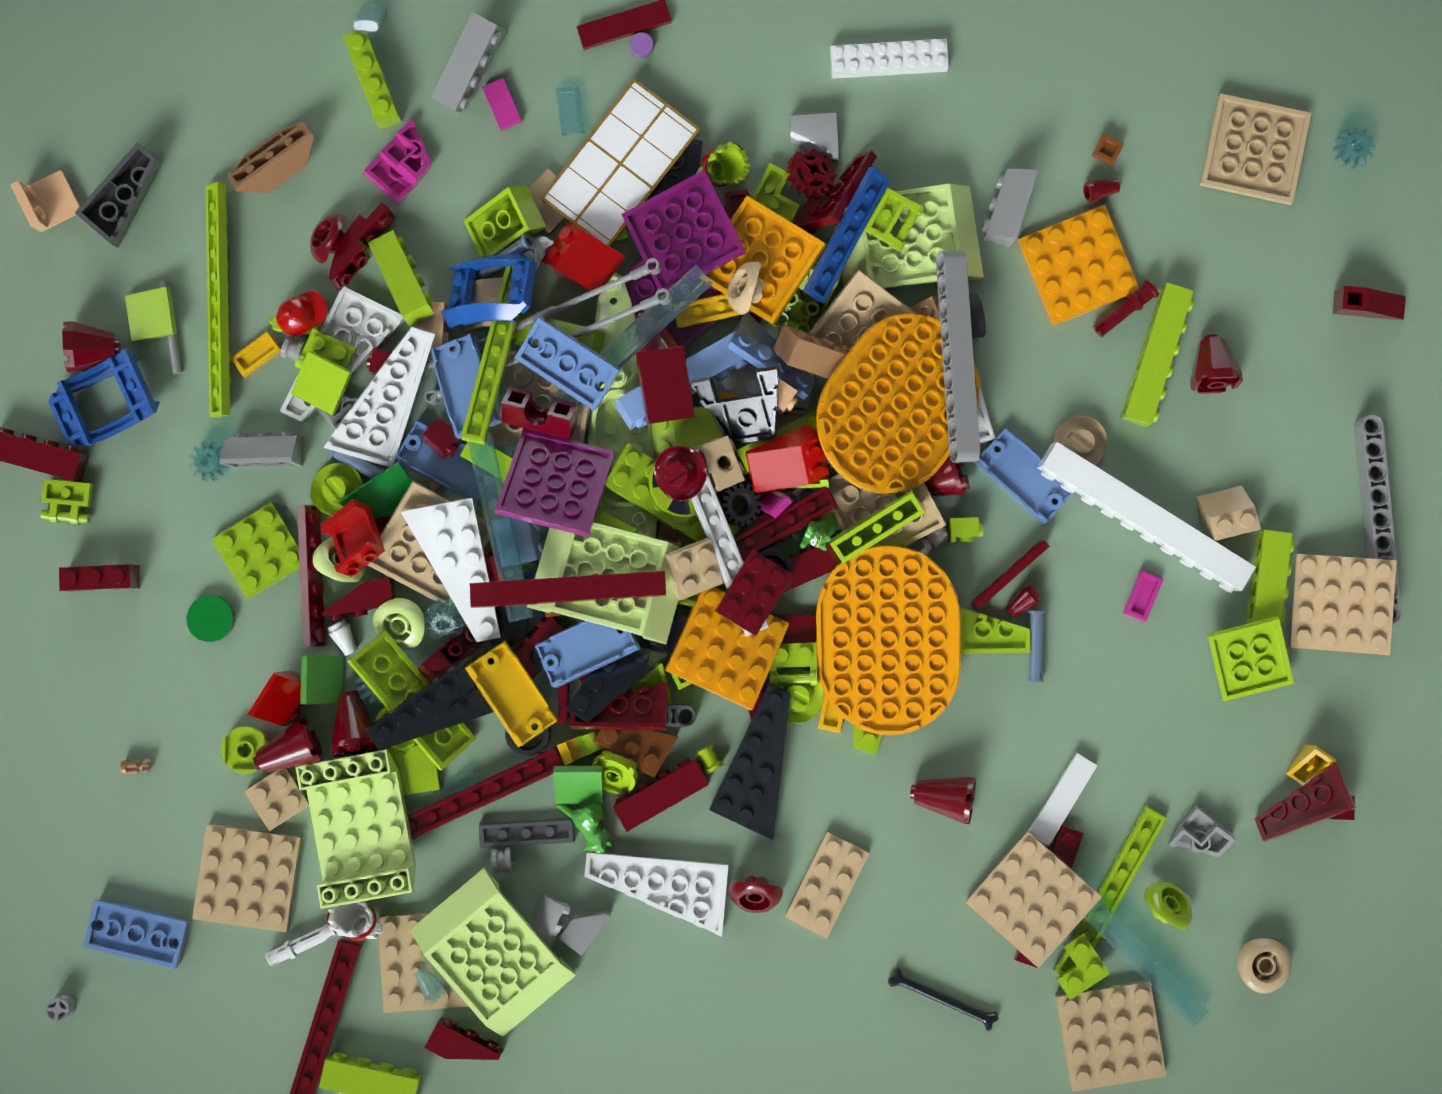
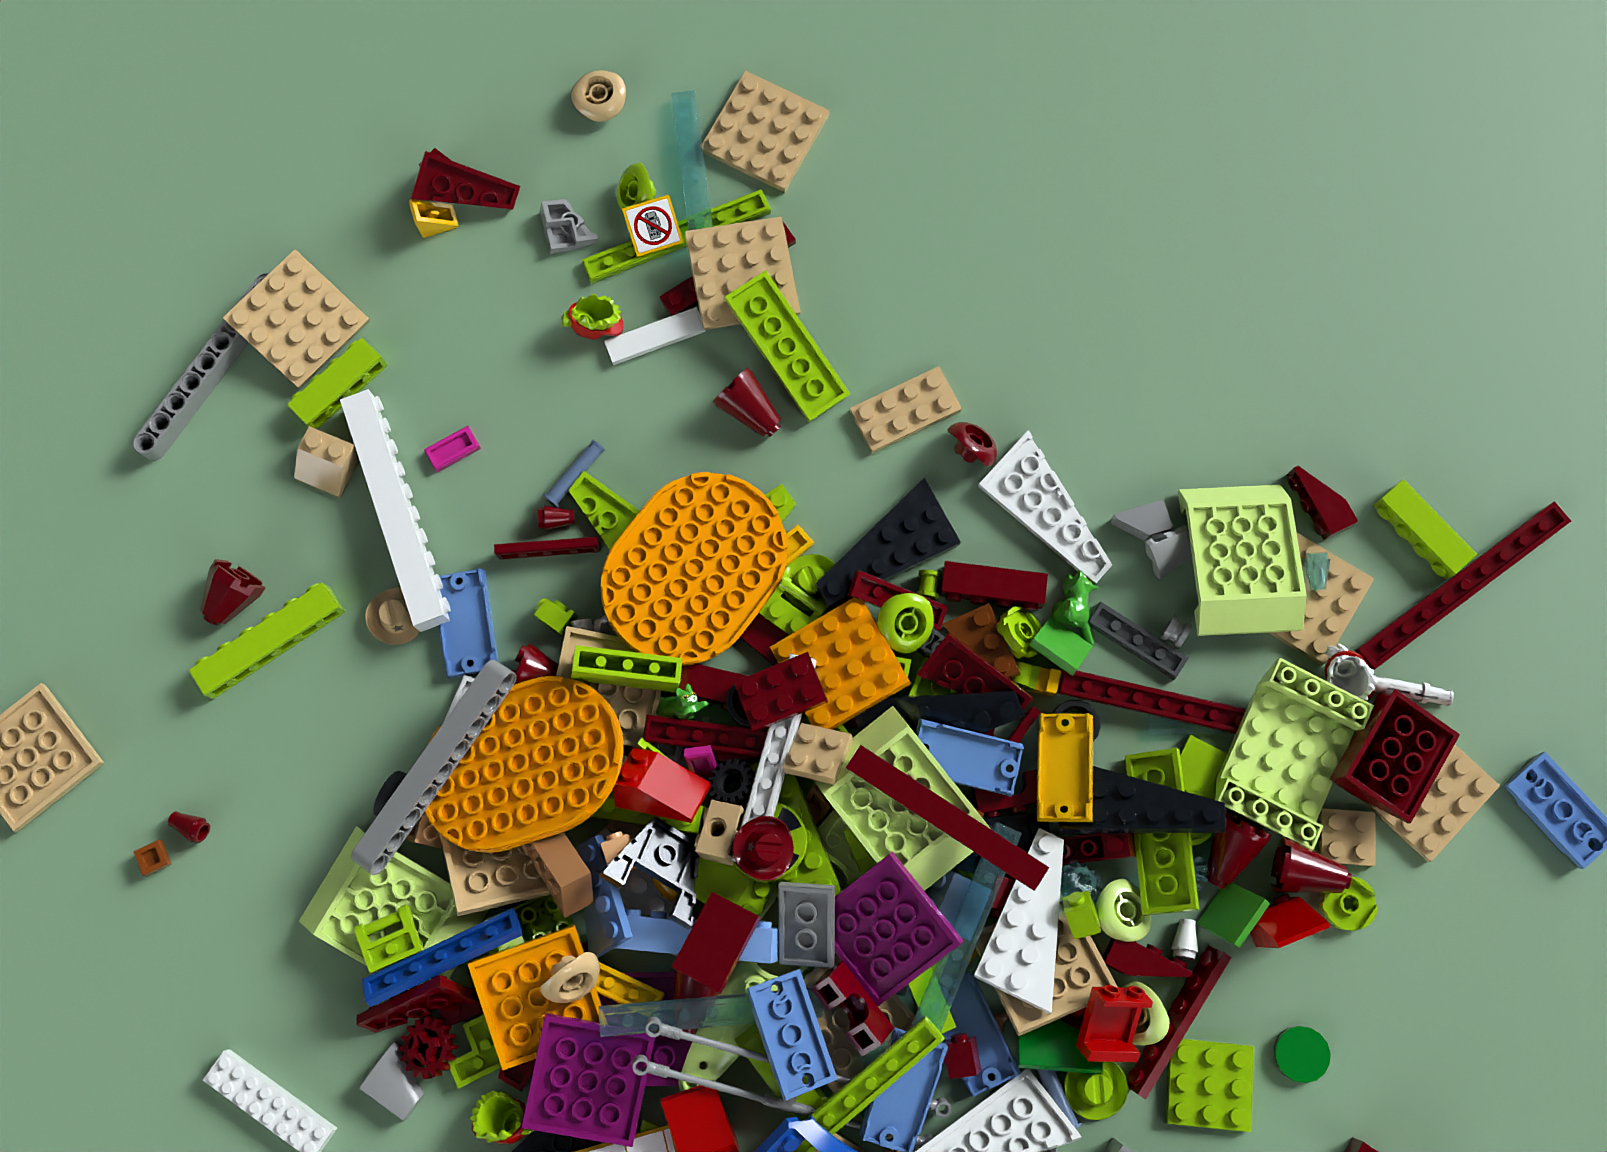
camera: 140 degrees left, 10 degrees down
(134, 766) = (1466, 966): medium nougat piece -> none
(281, 882) = (1395, 756): none -> dark red slope
(427, 596) = (1081, 914): none -> lime brick
(612, 444) = (806, 925): none -> light grey tile
(702, 713) = (906, 622): none -> lime hat
(721, 727) = (878, 591): none -> dark red plate
(953, 865) = (787, 346): none -> lime plate
(986, 1018) = (902, 291): black piece -> none
(1009, 206) = (279, 872): light grey slope -> none
(1078, 265) = (266, 773): light orange plate -> none
(1087, 968) = (745, 189): lime plate -> none
(1118, 776) = (594, 317): none -> lime hair
(1133, 885) = (652, 225): none -> piece
(1134, 302) = (248, 701): dark red pin -> none
(1250, 658) = (408, 331): lime plate -> none
(1368, 303) = (57, 548): dark red slope -> none

